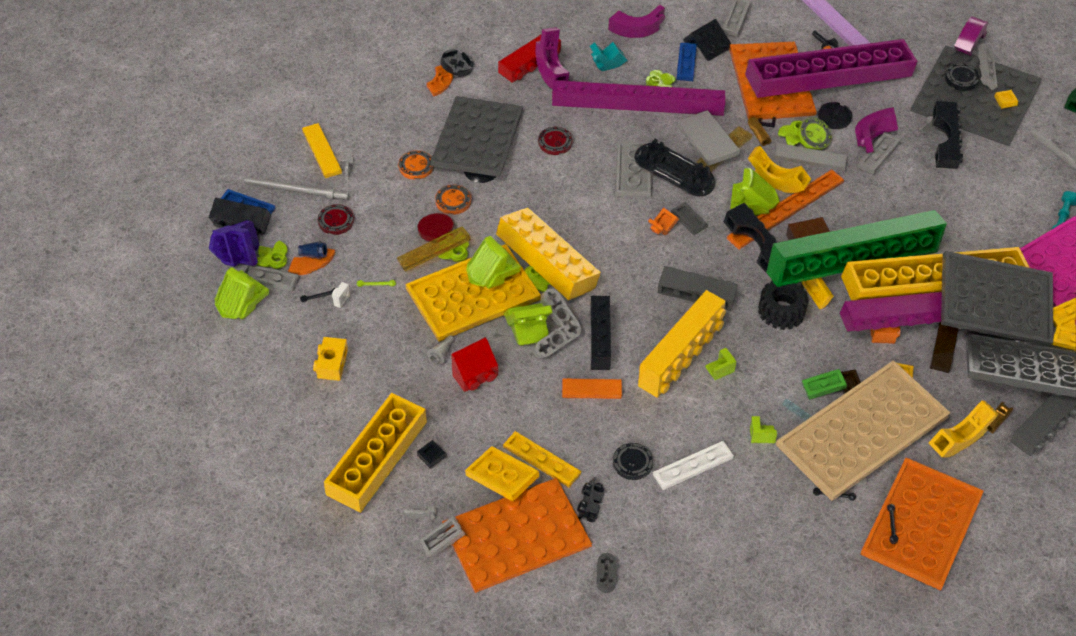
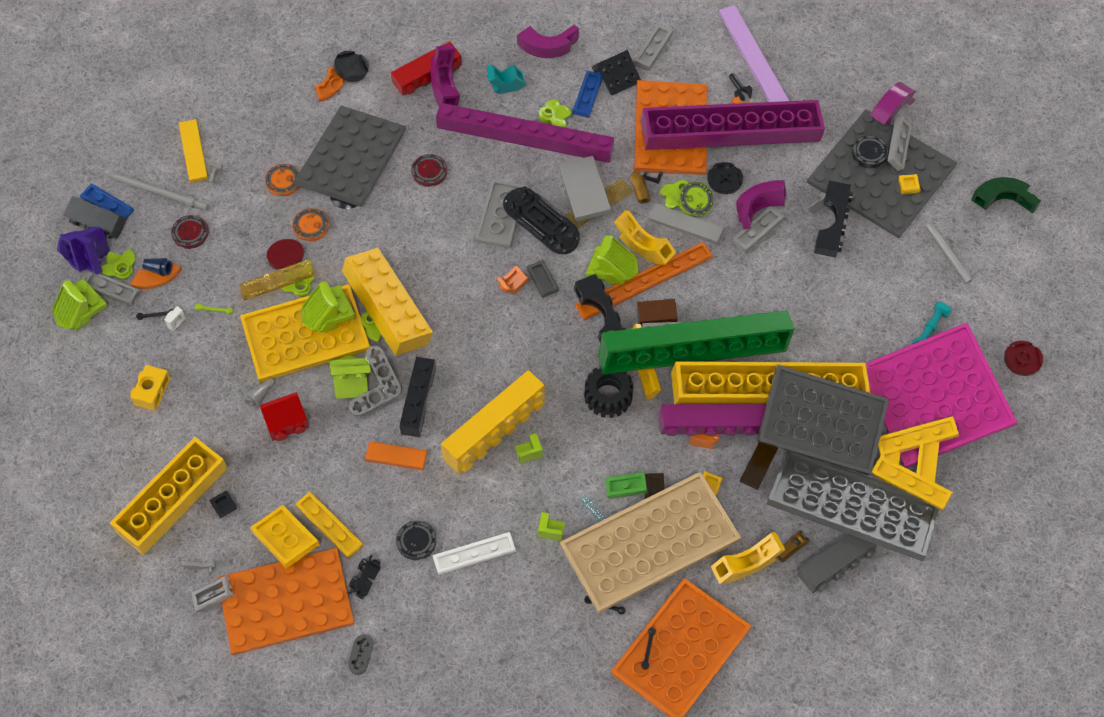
camera: 10 degrees right, 10 degrees up
(691, 286) = (523, 357): dark grey brick -> none

